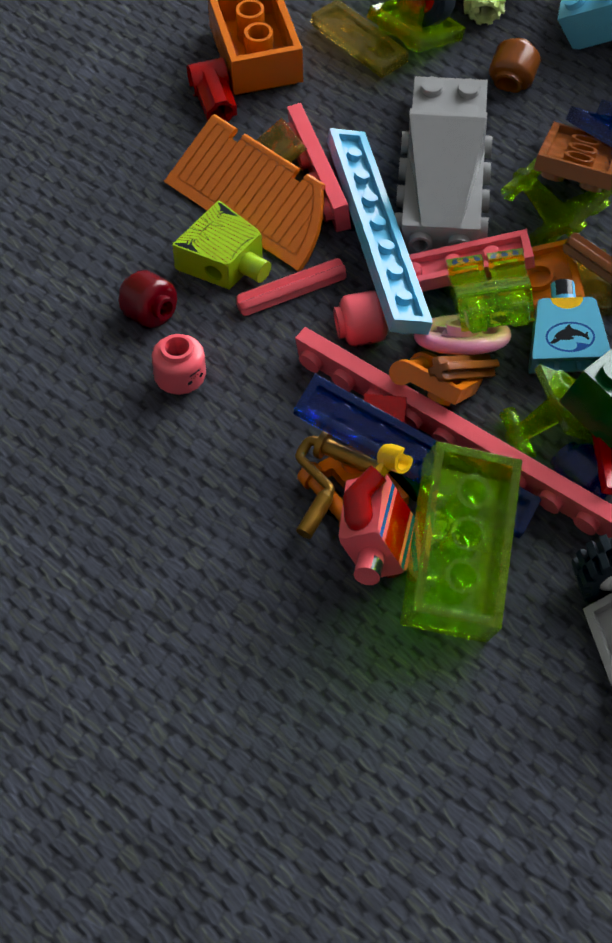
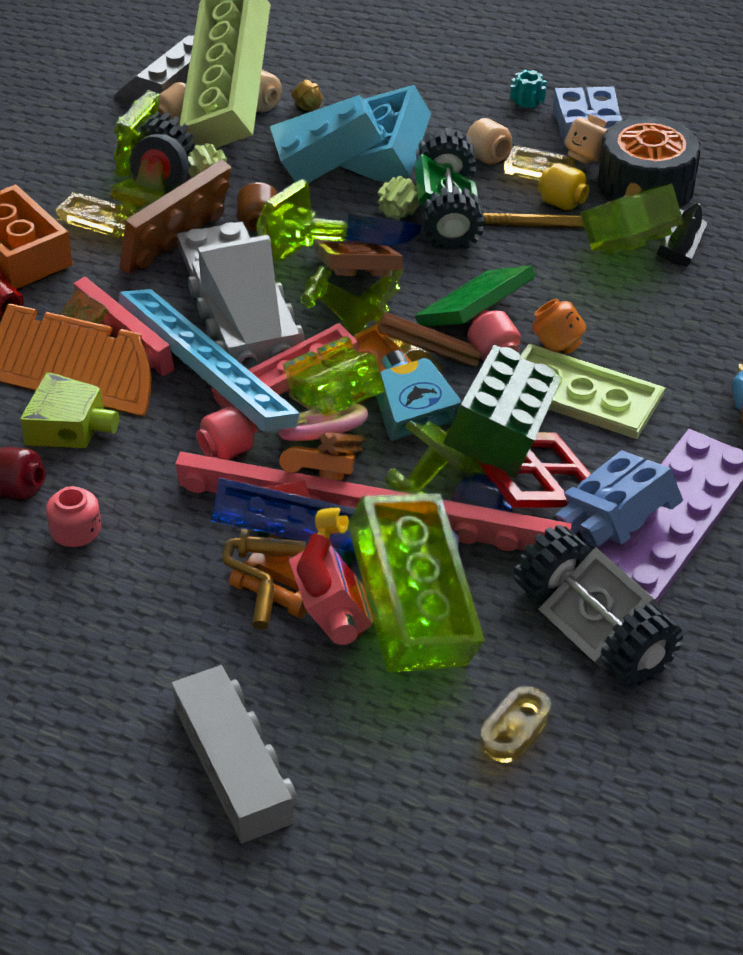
camera: 25 degrees left, 10 degrees down
(217, 657) = (234, 754): none -> light grey brick
(291, 287) = (143, 429): coral axle -> none
(422, 54) = (179, 211): none -> dark orange plate
(496, 722) = (511, 725): none -> clear yellow plate
(533, 97) = (293, 224): none -> clear neon green piece

